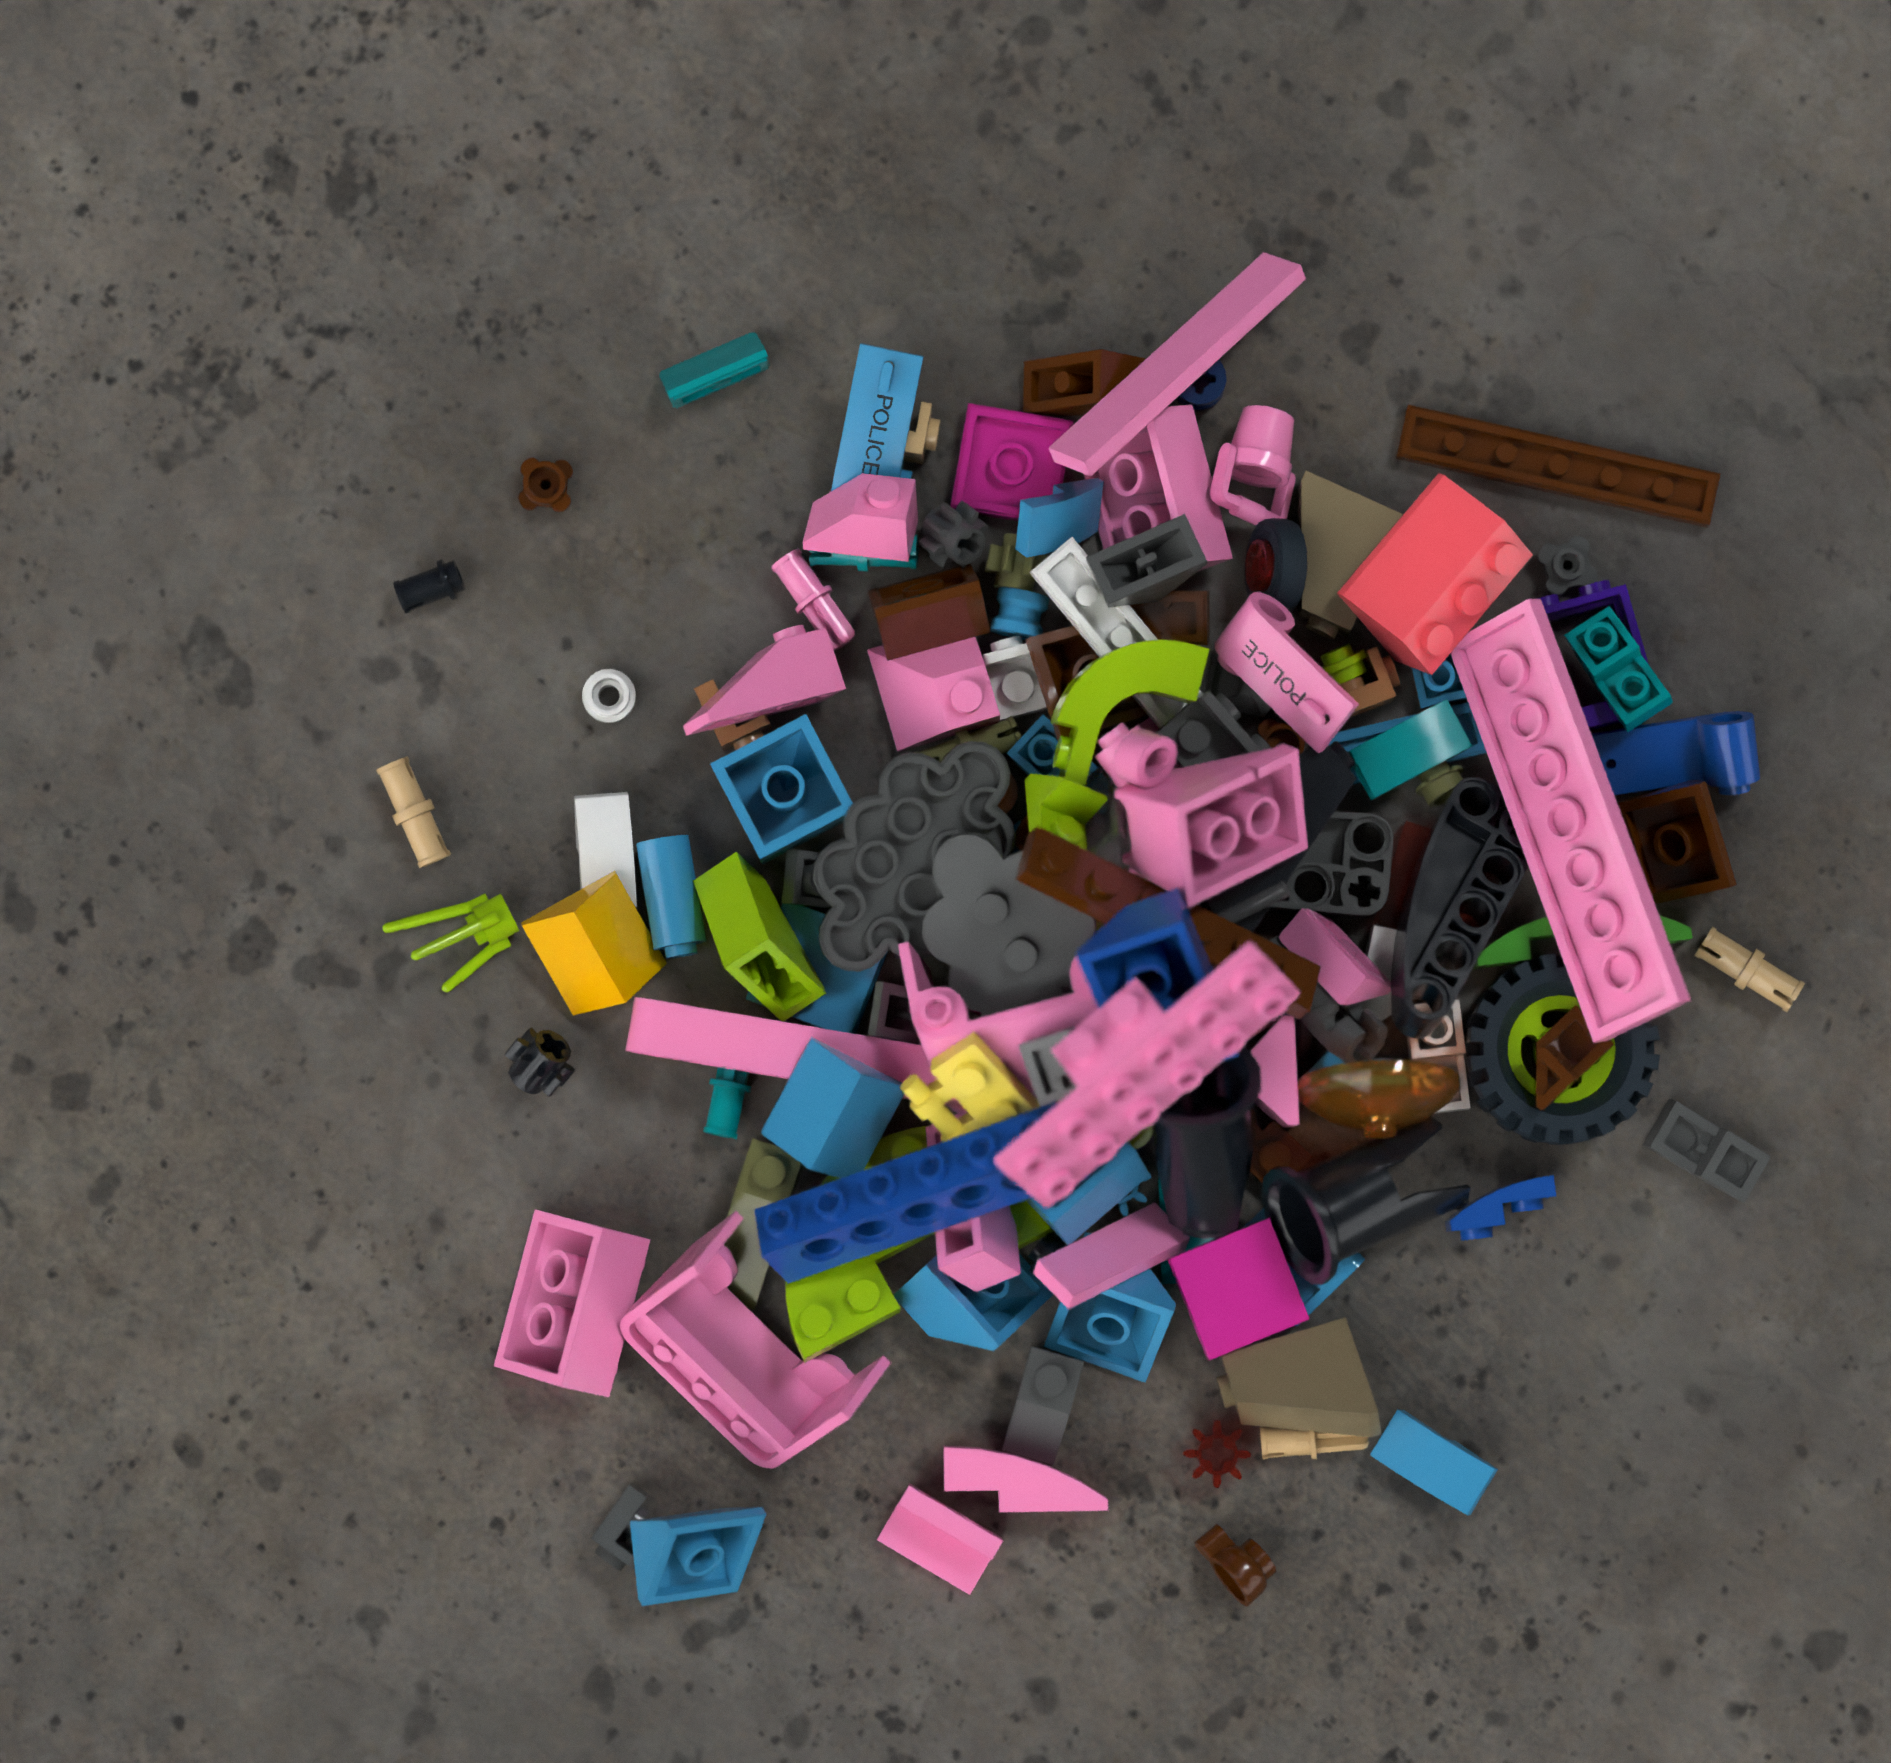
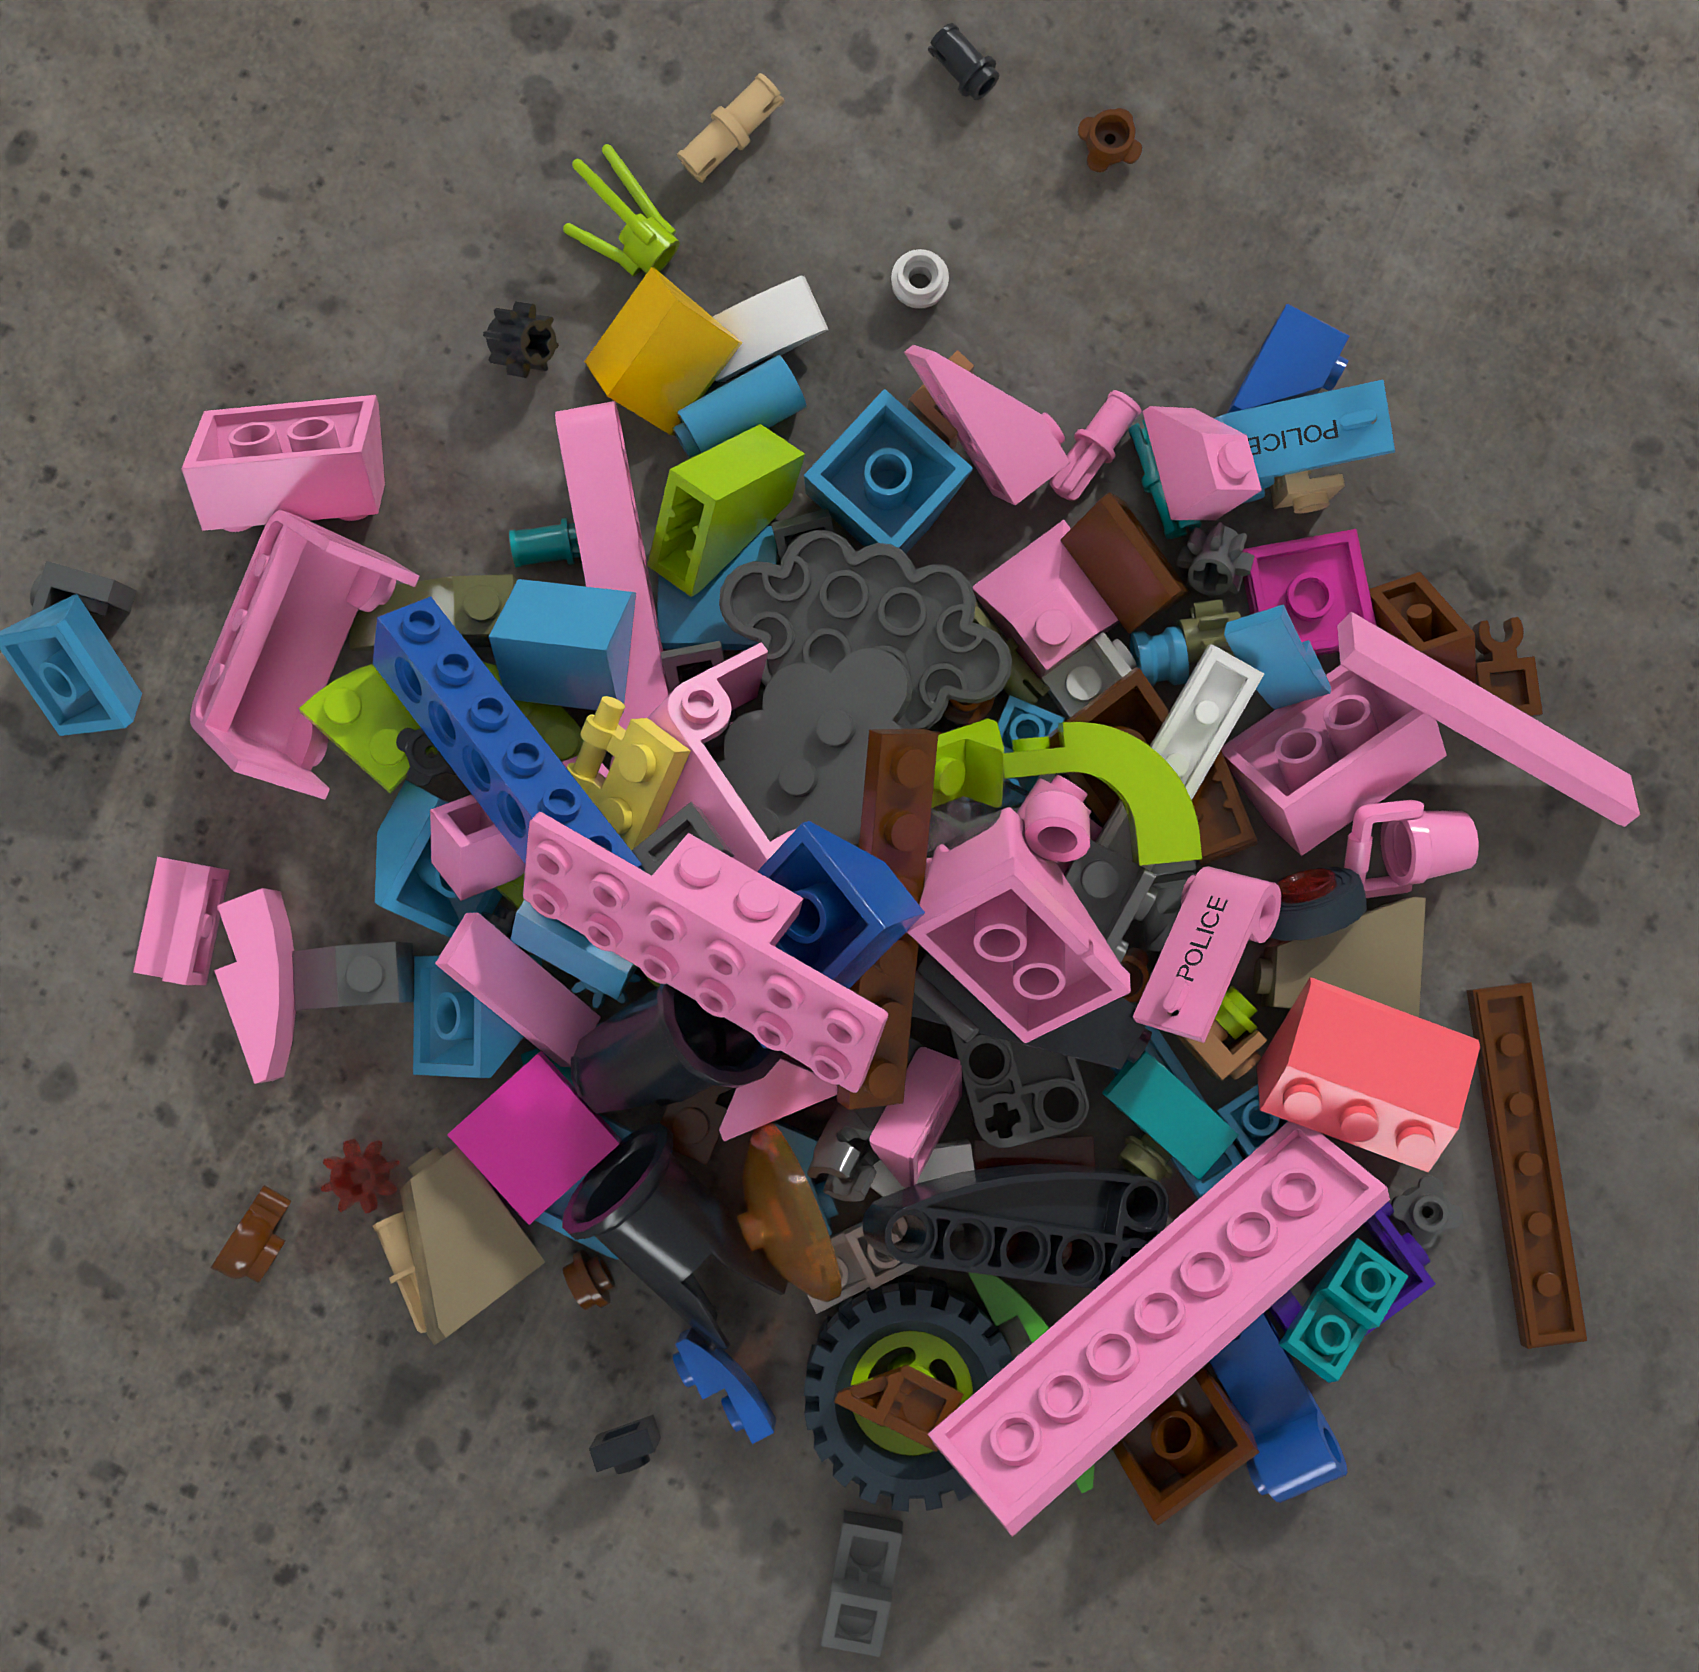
camera: 70 degrees right, 0 degrees up
(714, 369) = (1288, 265): teal slope -> none
(808, 408) = (1293, 361): none -> blue slope
(891, 1272) = (422, 767): none -> black plate
(1143, 328) = (1503, 672): none -> reddish brown plate
(1147, 564) = (1265, 764): dark grey slope -> none
(1205, 393) = (1460, 765): dark blue wheel -> none
(1373, 1289) = (589, 1280): none -> reddish brown plate
(1433, 1462) = (428, 1409): dark azure slope -> none
(1523, 1306) = (625, 1446): none -> black plate
(1749, 969) = (1071, 1562): tan pin -> none

